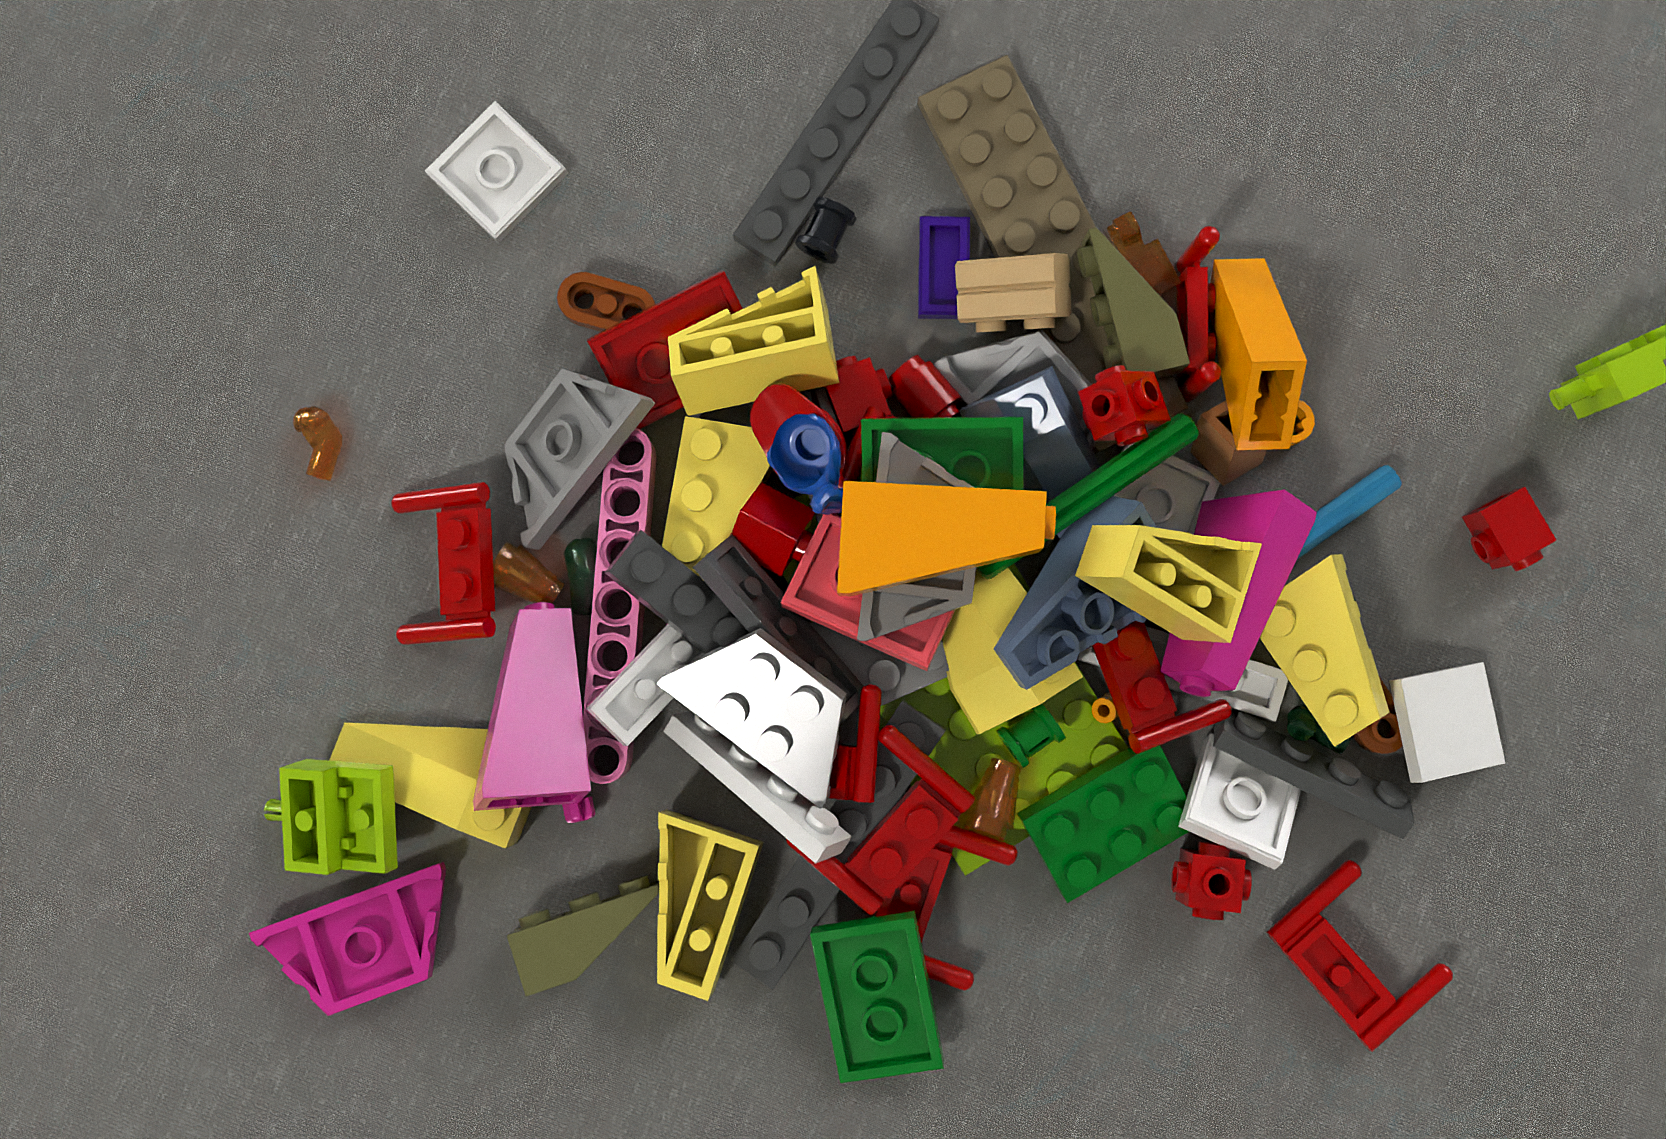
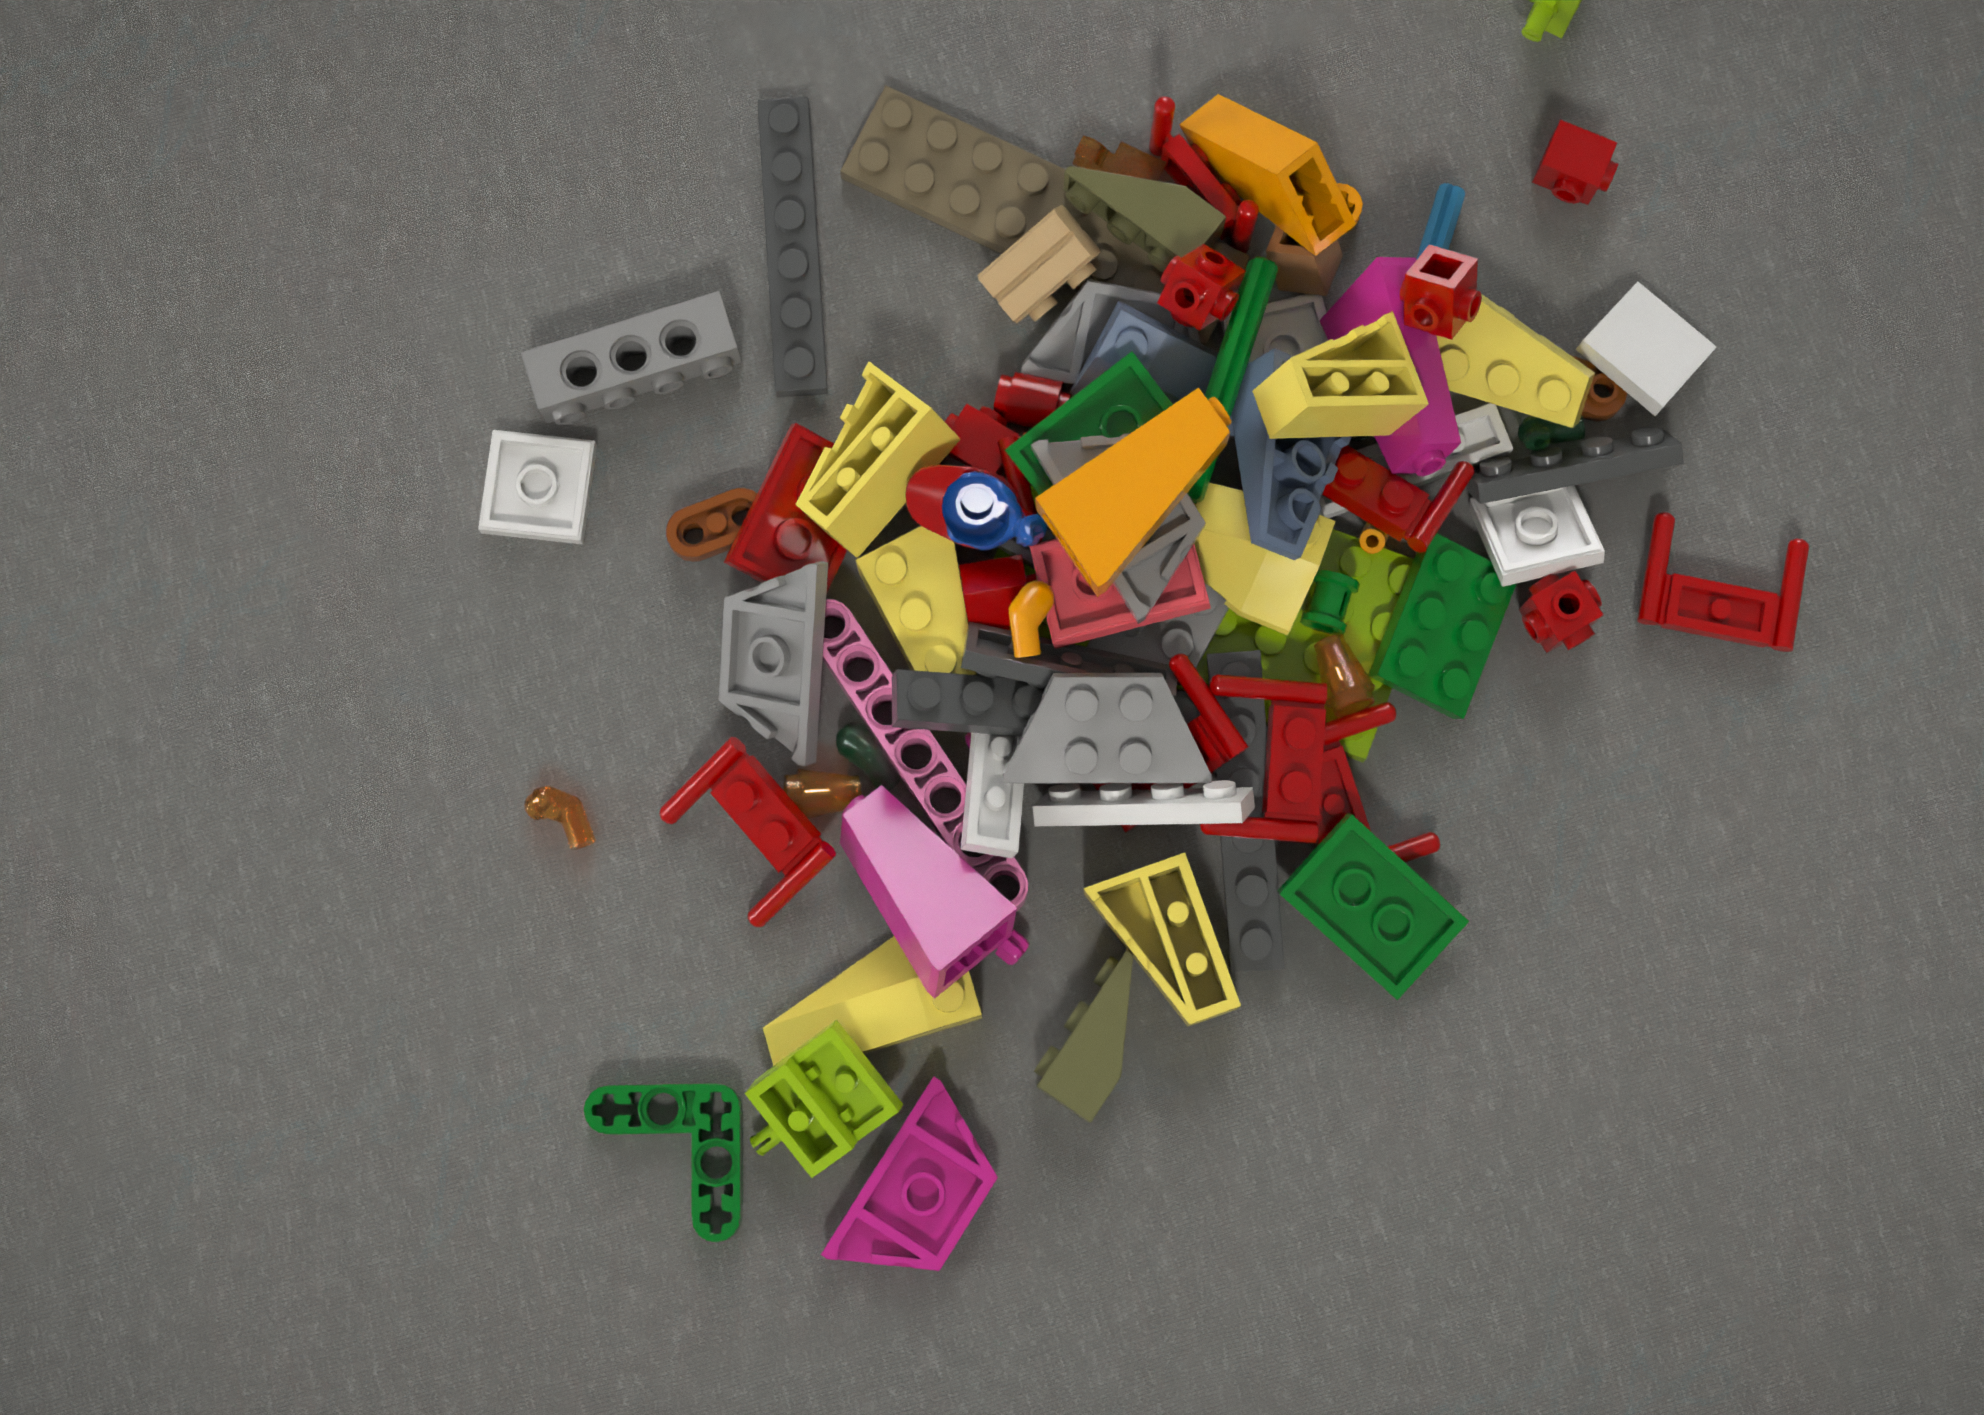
camera: 35 degrees left, 5 degrees down
(235, 752) = (688, 1120): none -> green beam
(576, 87) = (604, 350): none -> light grey brick
(773, 566) = (1027, 614): none -> light orange arm
(826, 230) = (848, 331): black bush -> none
(941, 244) = (954, 280): dark purple tile -> none
(1312, 559) = (1440, 292): none -> red brick

